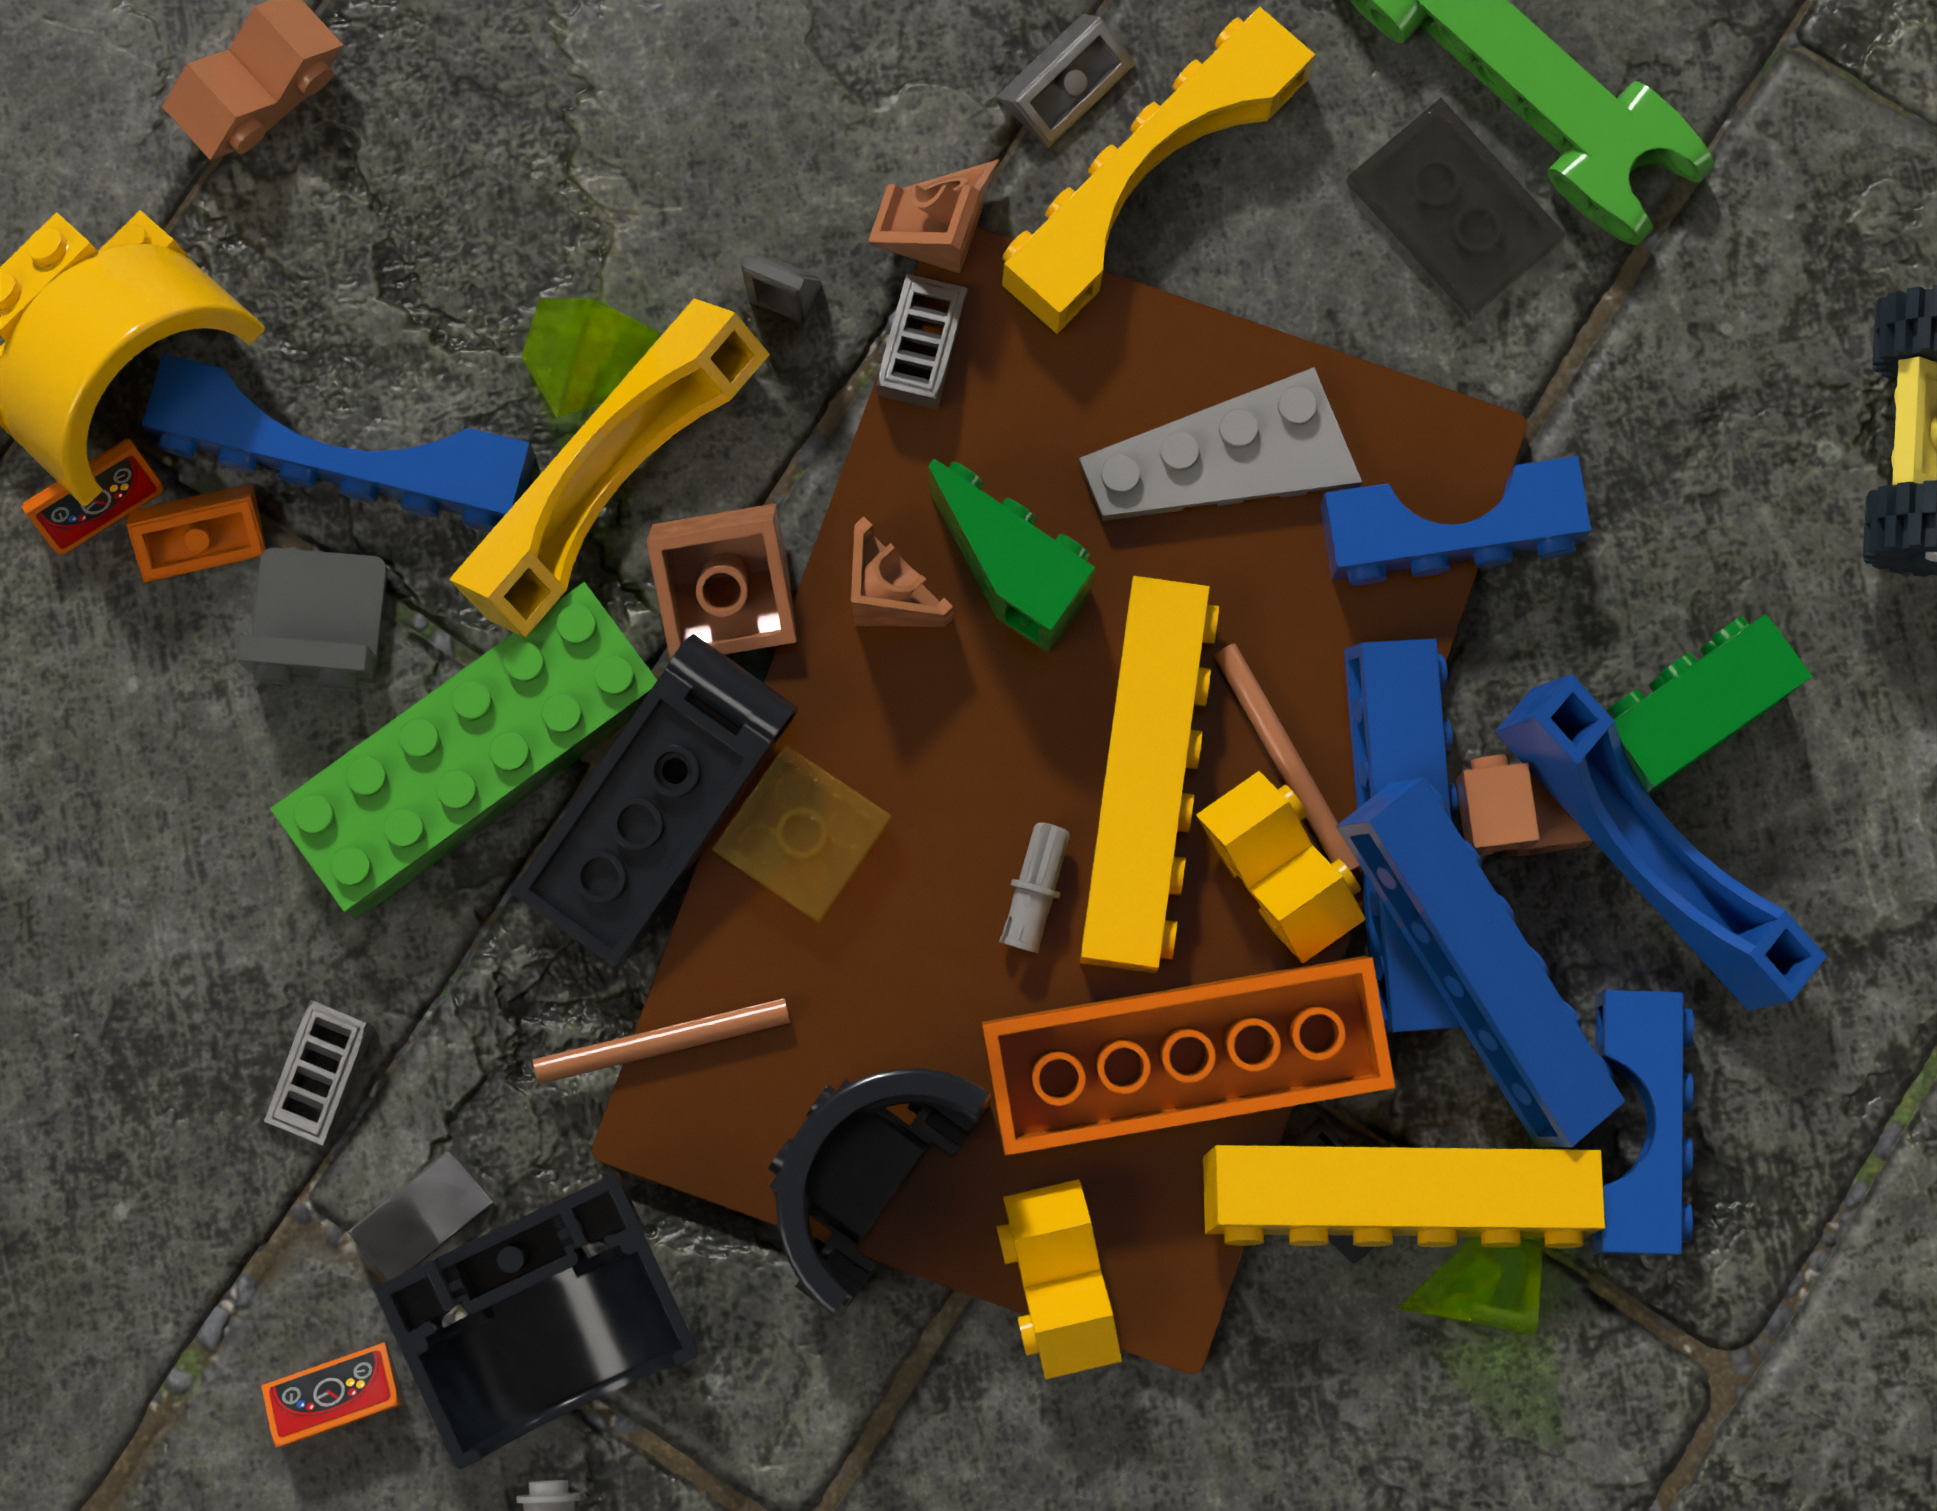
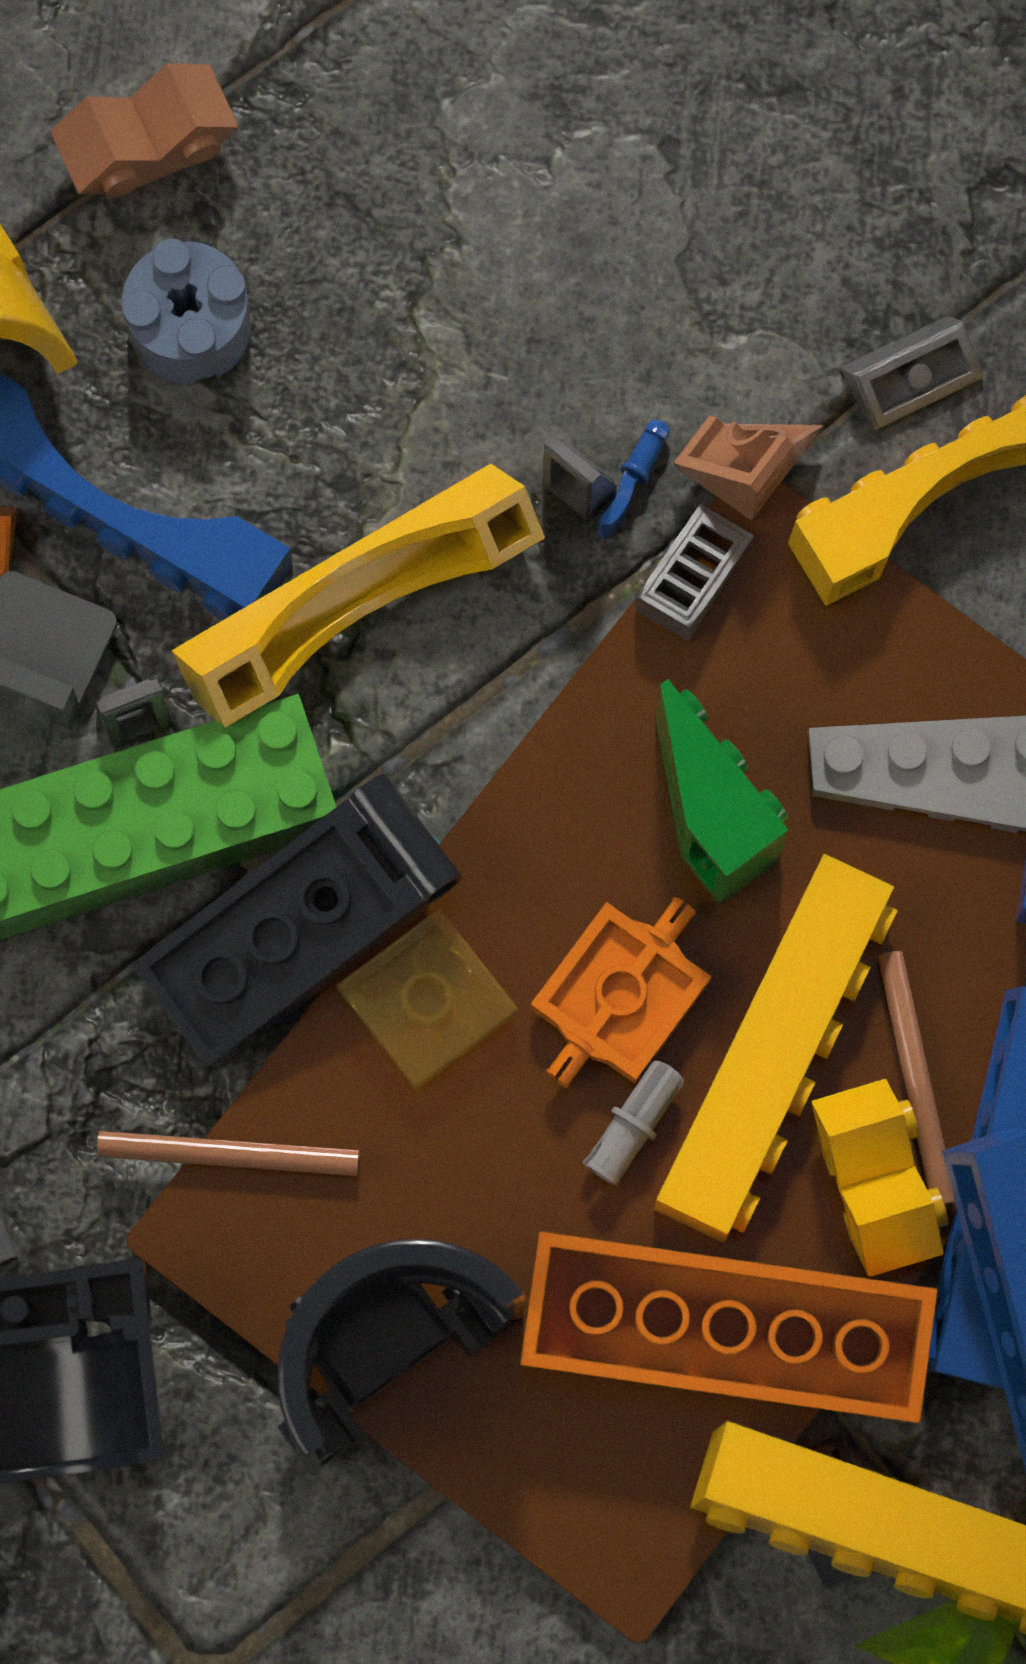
camera: 15 degrees right, 5 degrees down
(332, 214) = (178, 279): none -> sand blue brick
(430, 647) = (133, 712): none -> flat silver slope
(582, 351) = (369, 479): clear neon green slope -> none
(724, 580) = (432, 735): nougat slope -> none
(834, 260) = (634, 471): none -> blue piece
(888, 589) = (584, 793): nougat slope -> none
(983, 768) = (620, 992): none -> orange plate
(1061, 1279) = (536, 1506): yellow brick -> none

